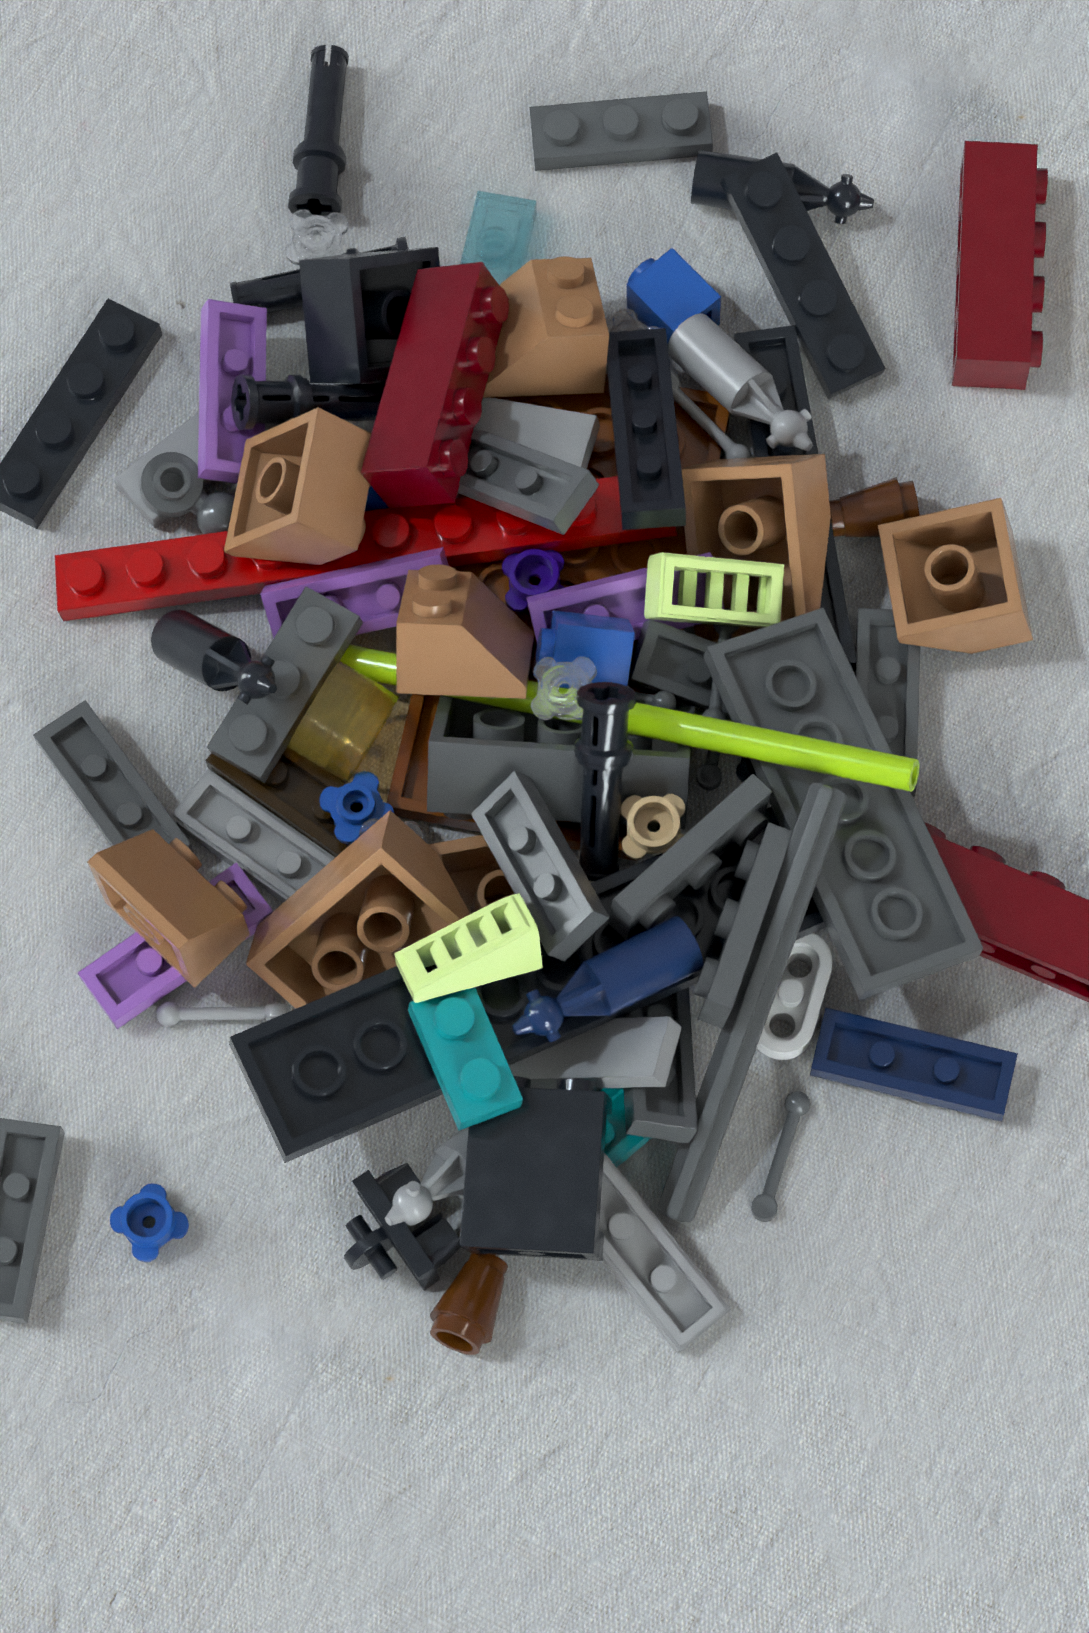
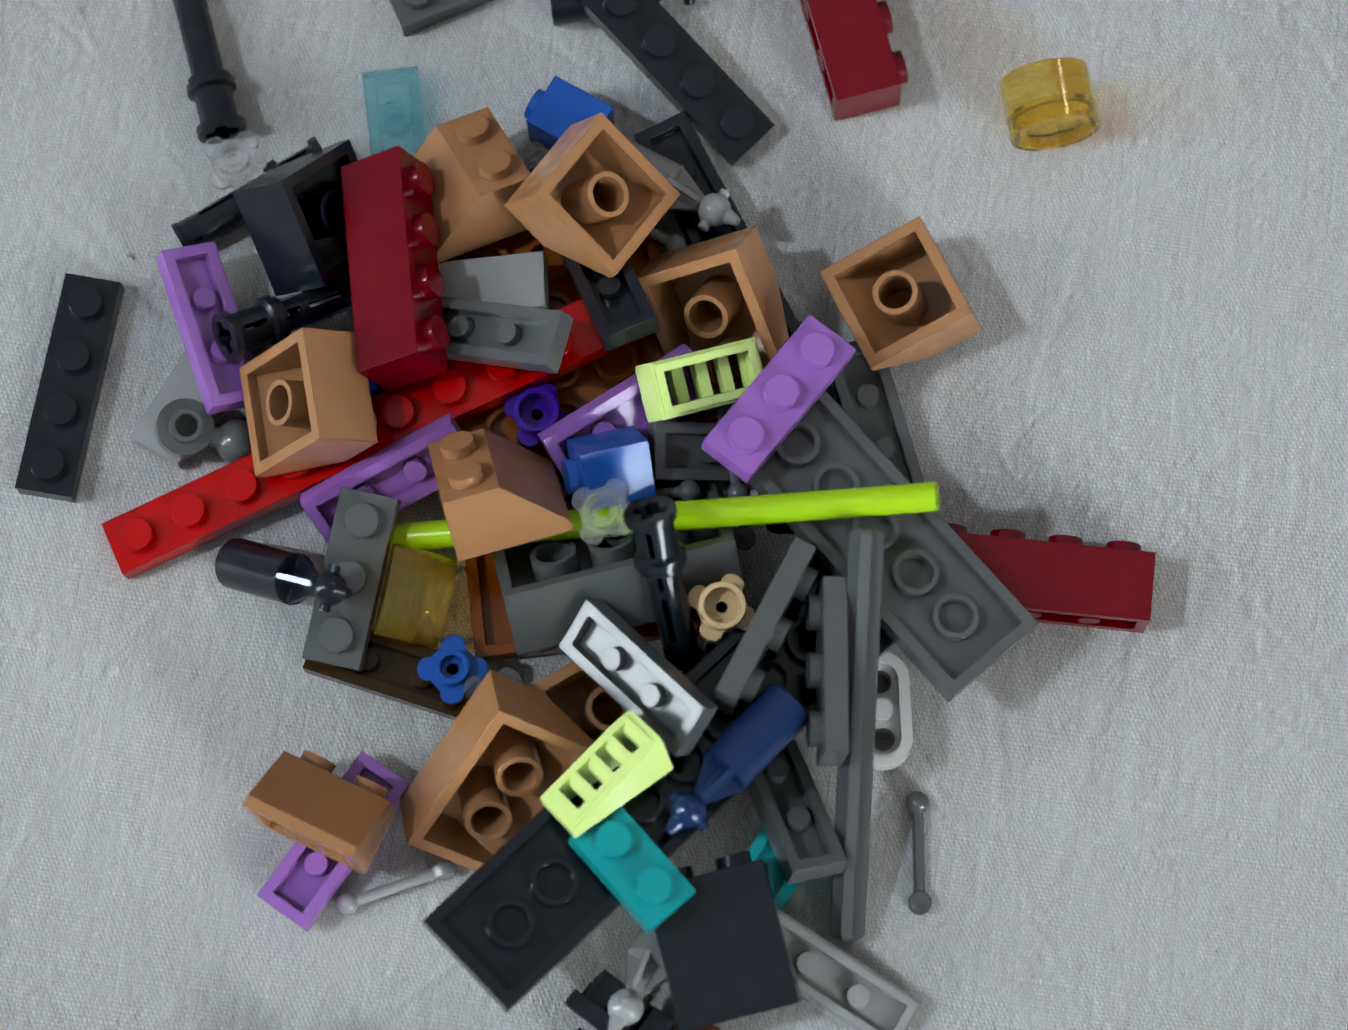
camera: 20 degrees left, 5 degrees up
(104, 778) = (222, 715): dark grey plate -> none
(249, 834) = (366, 723): light grey tile -> none
(612, 1055) = (752, 820): light grey tile -> none
(664, 371) = (593, 196): none -> medium nougat slope
(785, 632) = (778, 399): none -> medium lavender plate
(879, 504) = (809, 254): reddish brown cone -> none
(913, 1064) = (1005, 737): dark blue plate -> none

